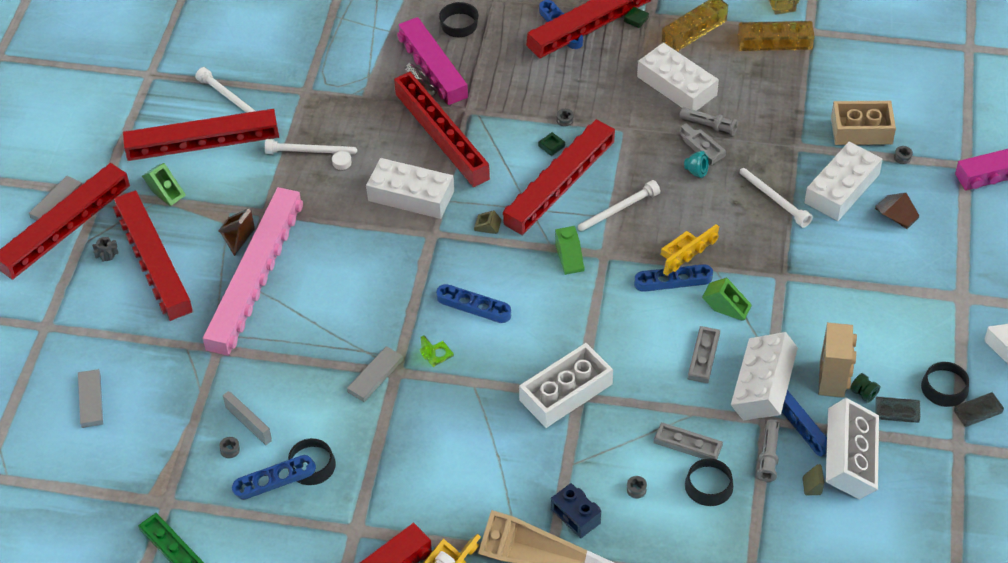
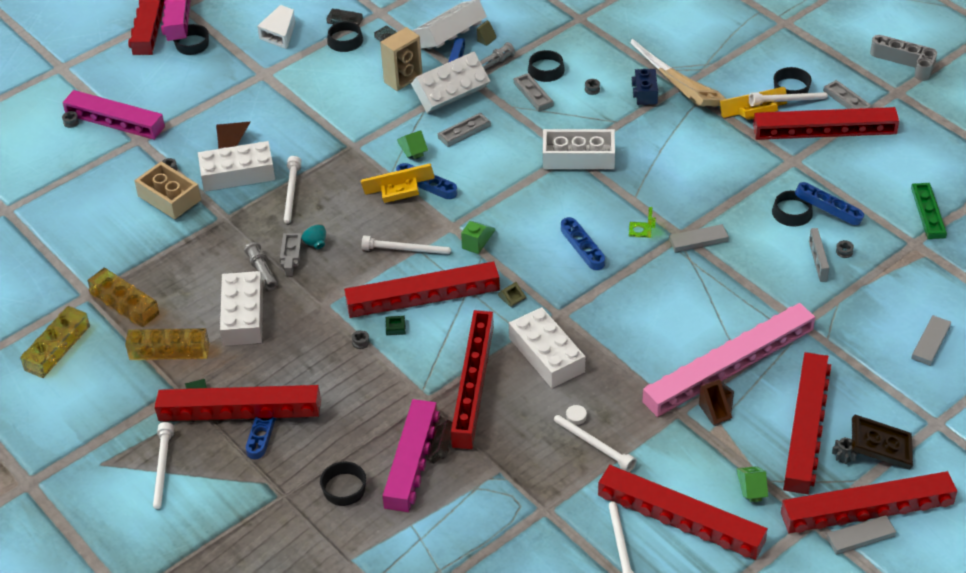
camera: 140 degrees left, 5 degrees down
(77, 268) = (882, 442): none -> dark brown tile

